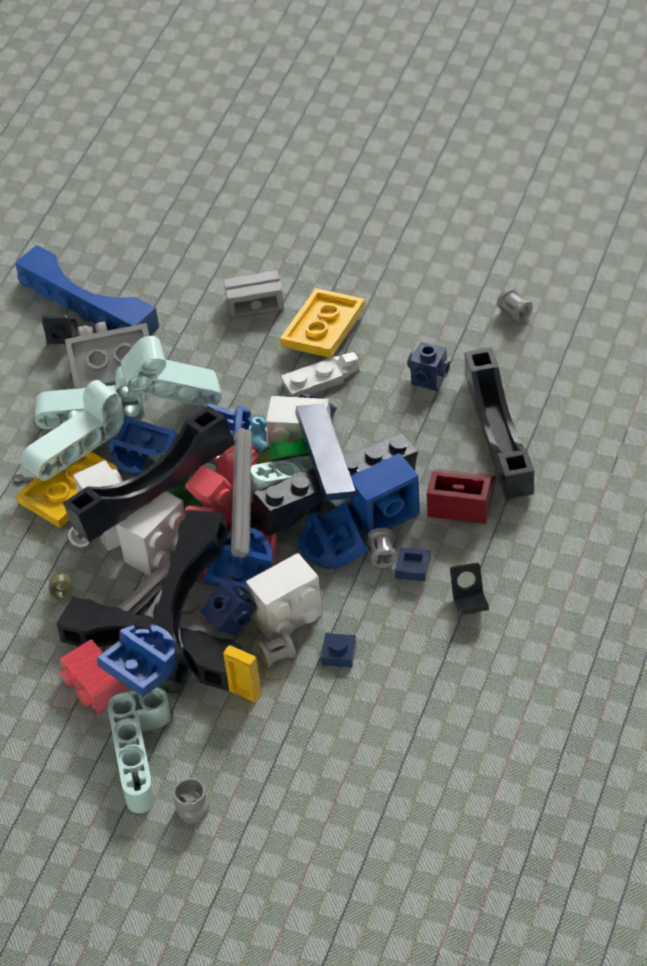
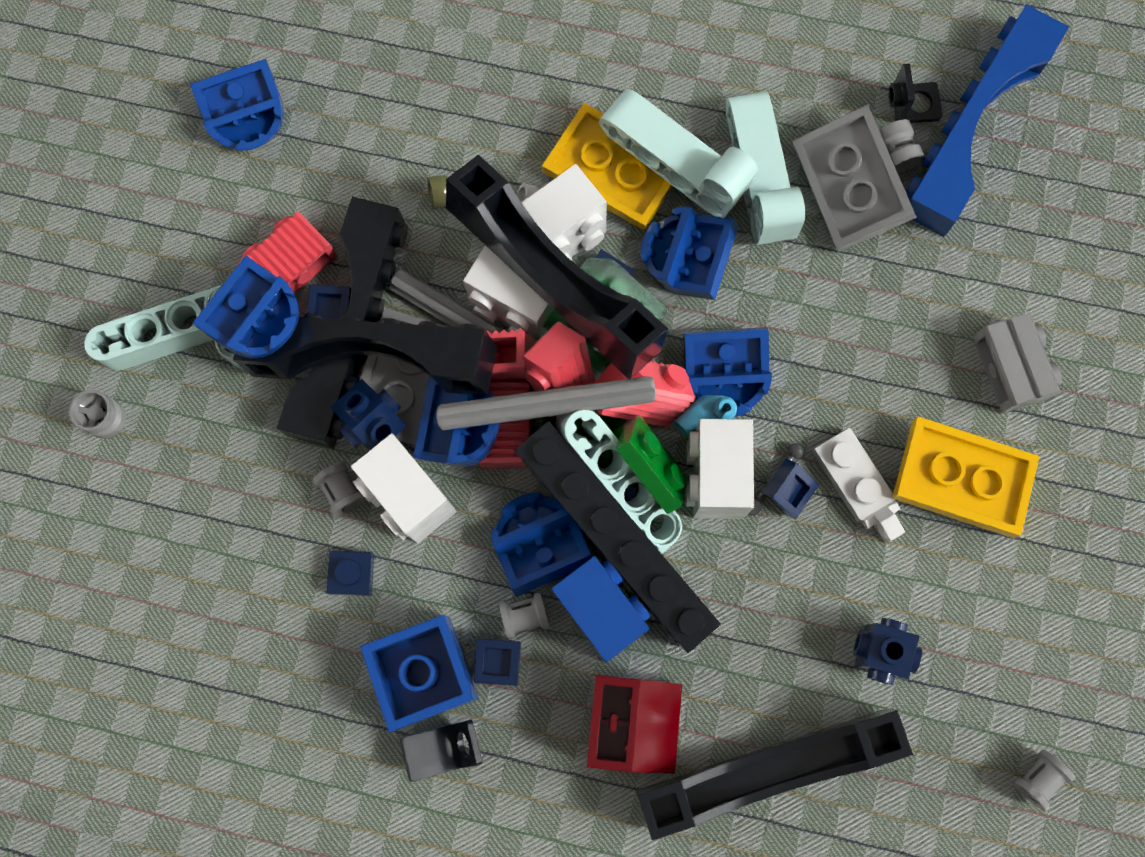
camera: 85 degrees right, 30 degrees up
(152, 375) = (783, 238): light aqua beam -> none
(242, 673) = (273, 449): yellow tile -> none
(325, 452) = (636, 515): tile -> none
(415, 598) = (419, 672): none -> blue brick

